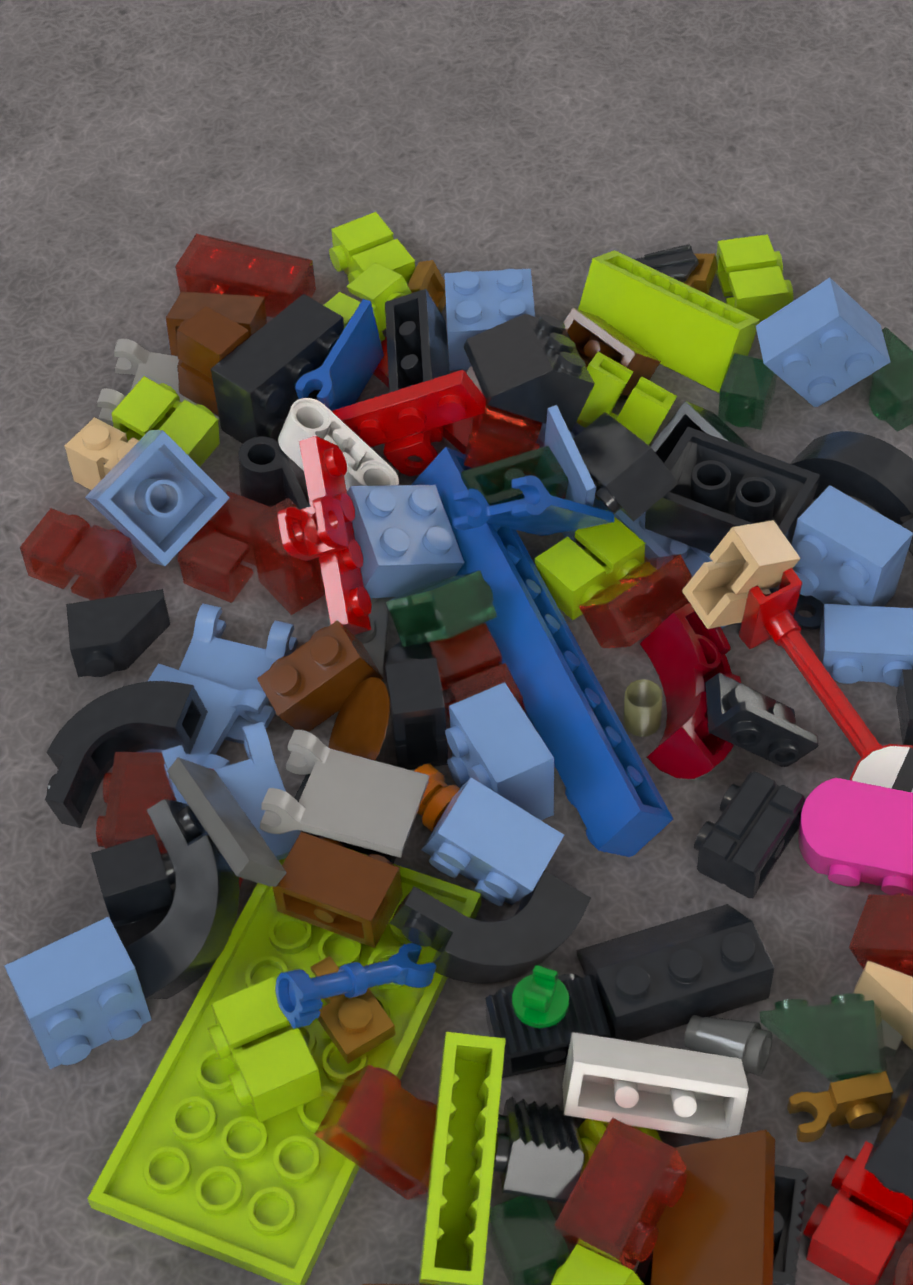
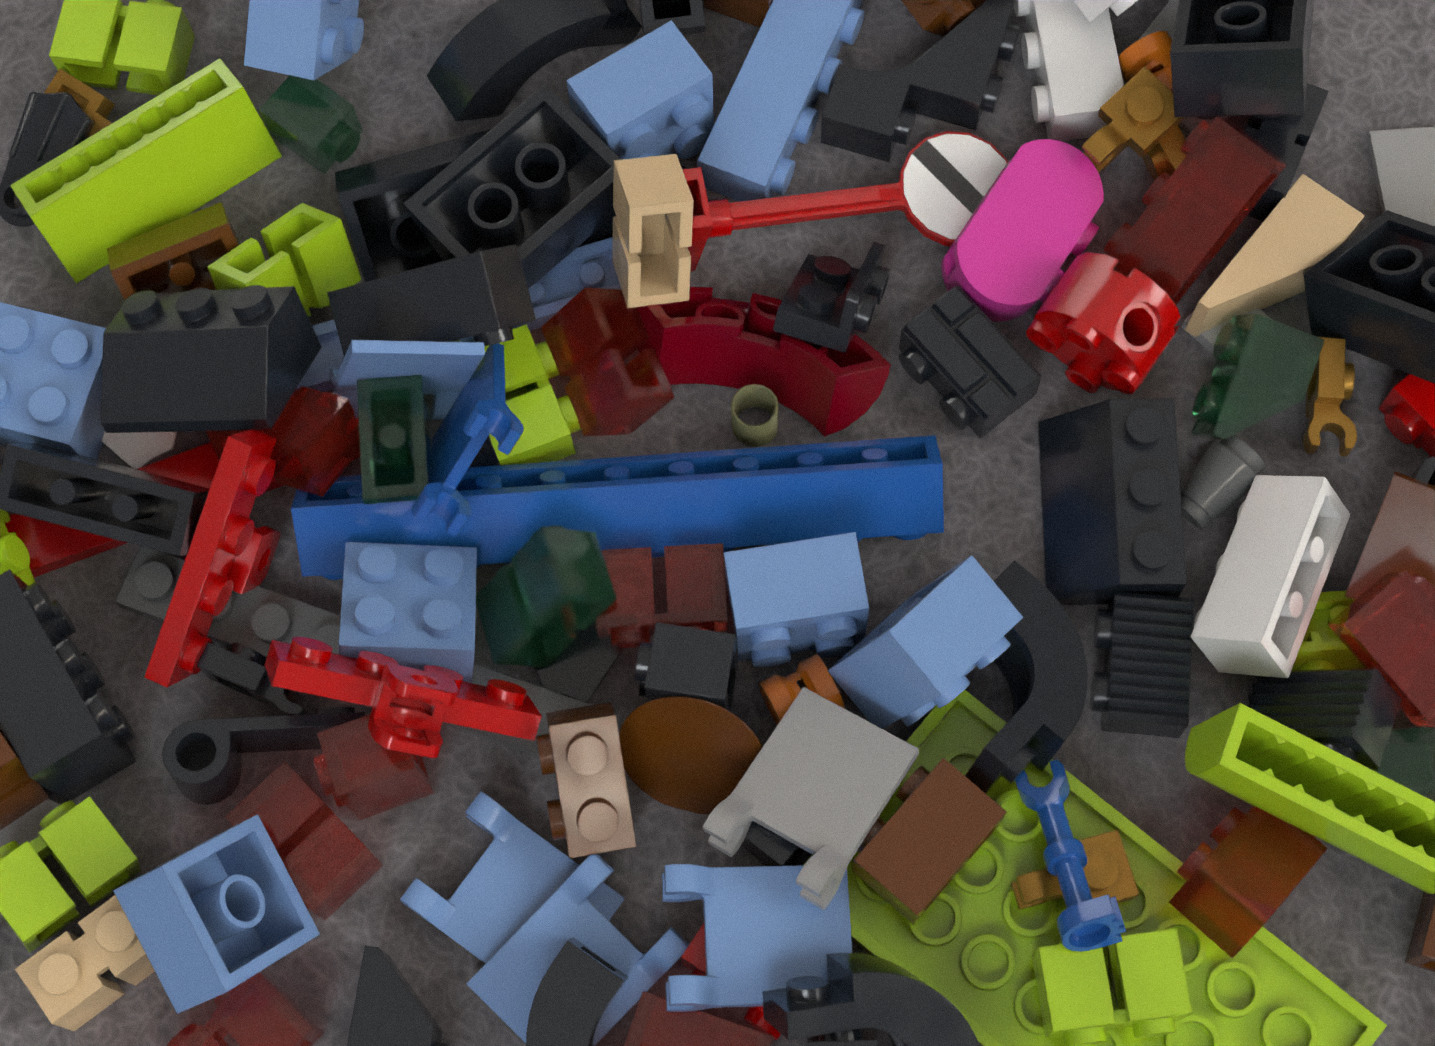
camera: 70 degrees left, 20 degrees up
(226, 823) = (822, 947): dark grey tile -> none
(313, 418) = (235, 650): white beam -> none
(348, 363) = (118, 637): blue flag -> none
(540, 998) = (1145, 657): green plate -> none
(812, 938) = (1105, 324): none -> red brick

